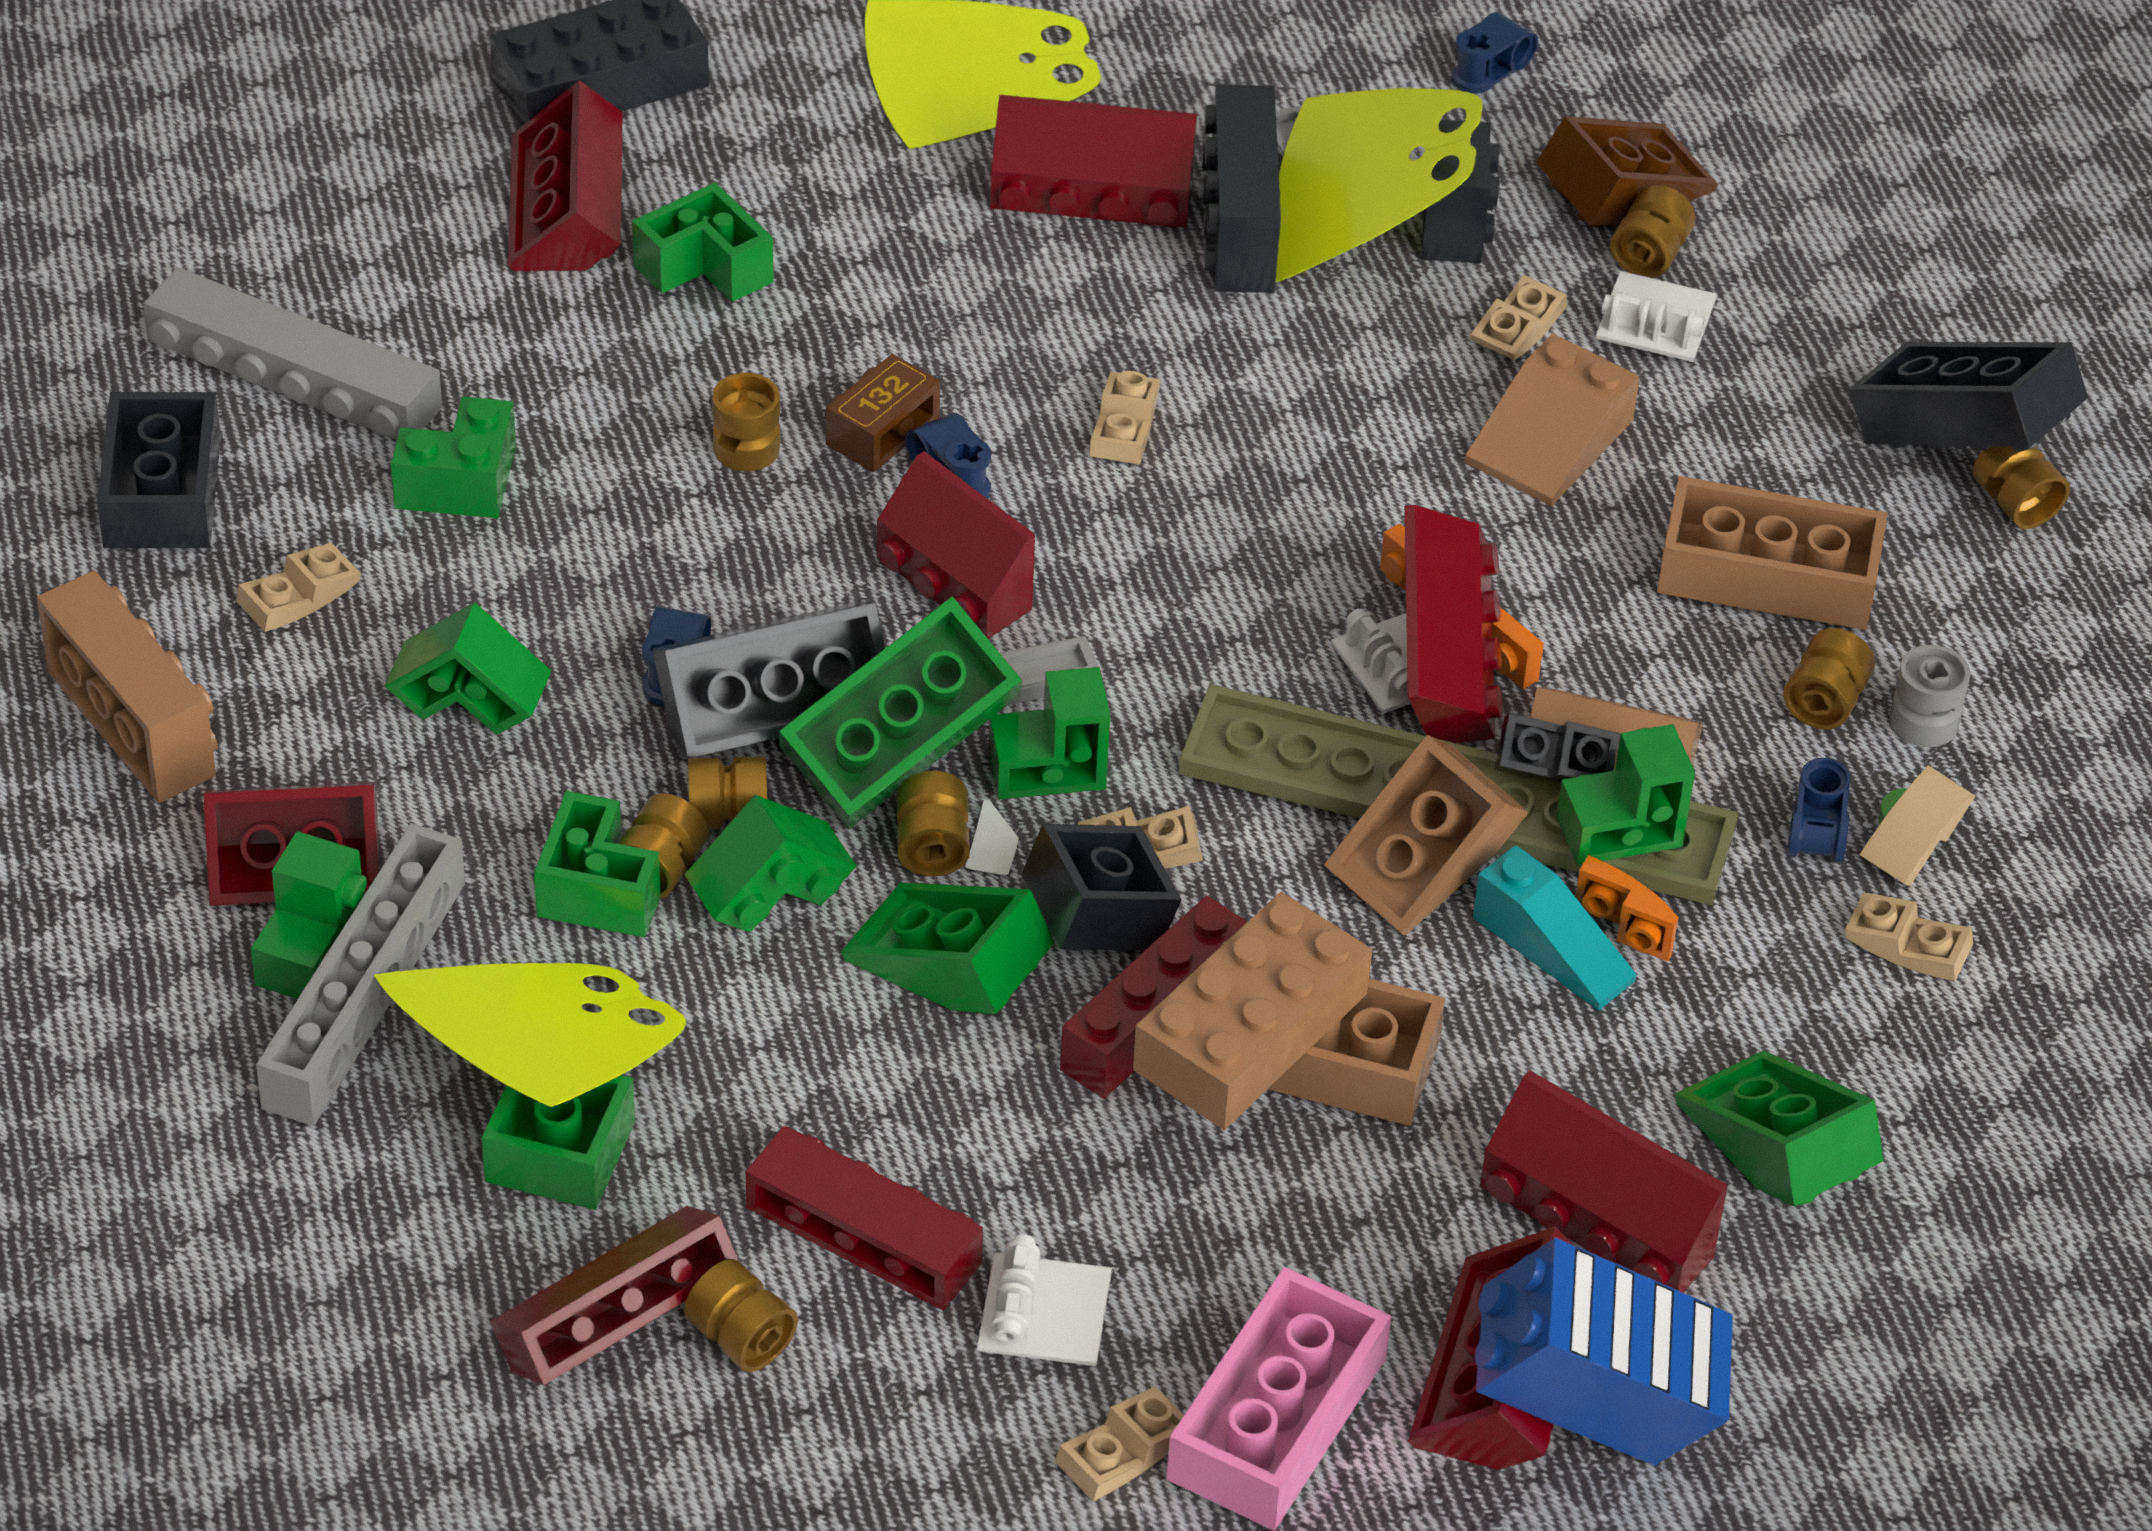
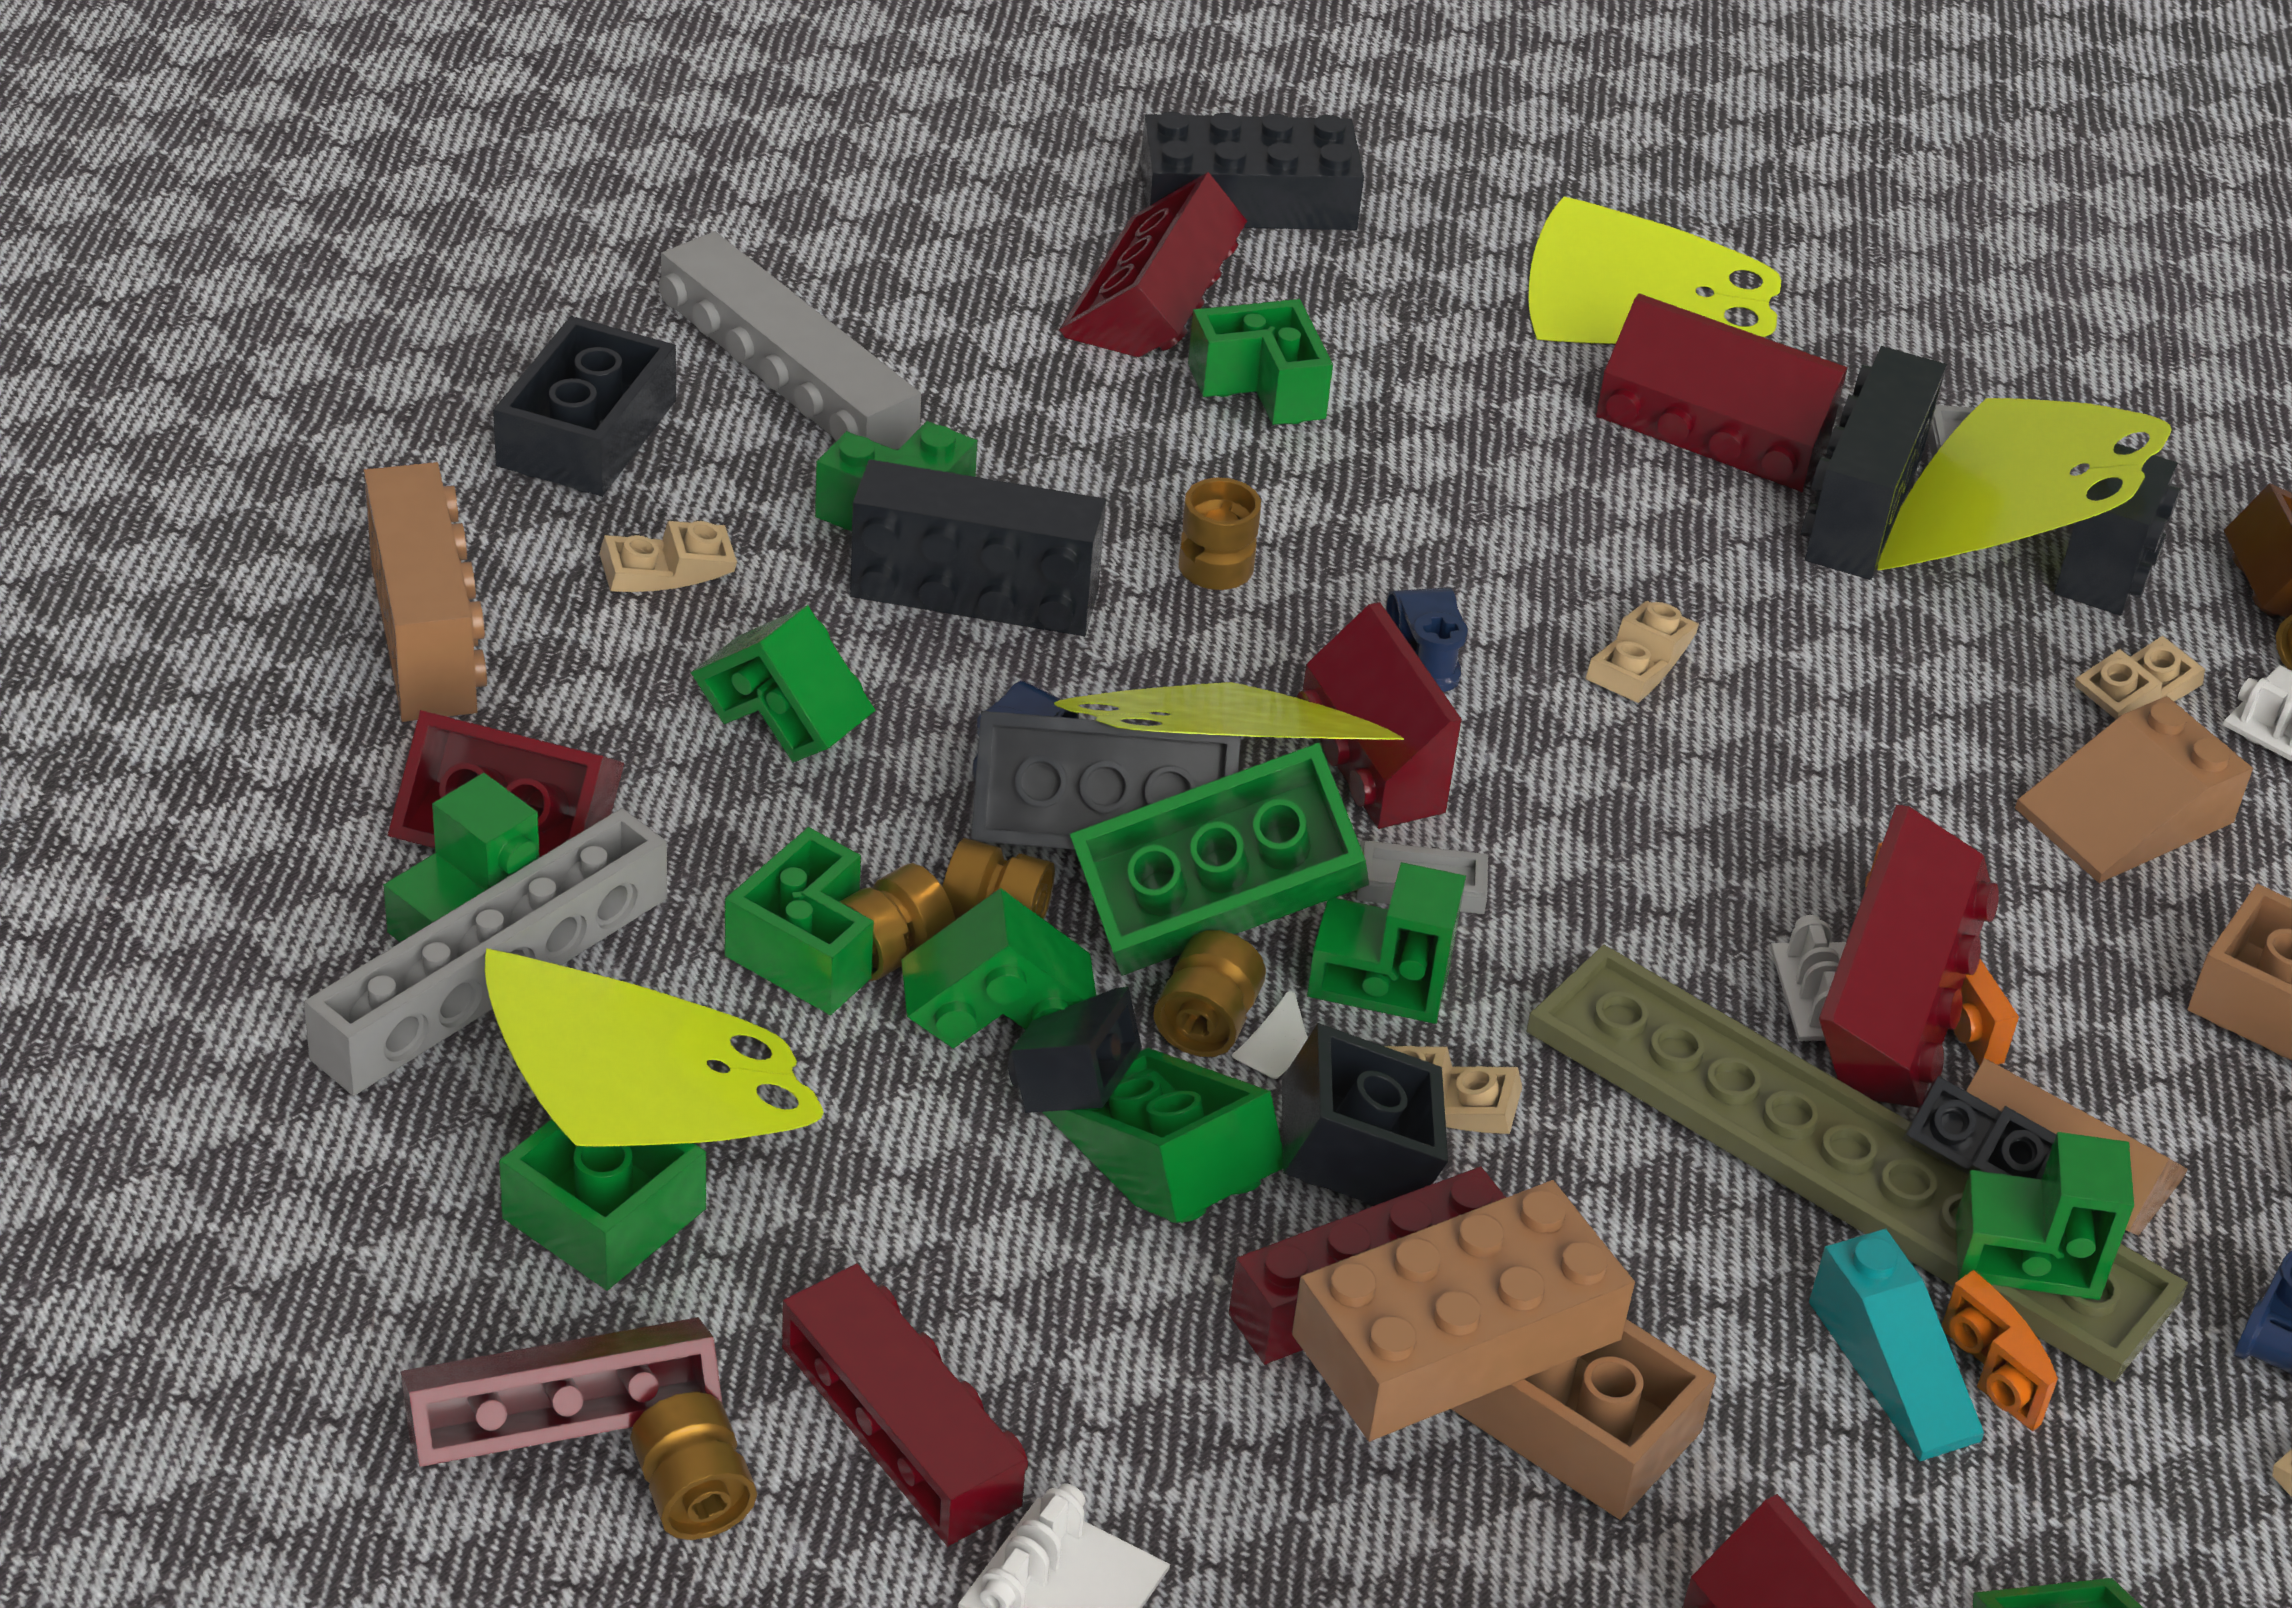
camera: 20 degrees right, 5 degrees down
(562, 499) = (976, 547): none -> black brick
(844, 585) = (1226, 710): none -> neon yellow piece
(857, 907) = (1076, 1054): none -> black slope
(878, 410) = (1368, 562): reddish brown brick -> none
(1425, 835) = (1782, 1183): medium nougat slope -> none
(1491, 53) = (2219, 414): dark blue piece -> none

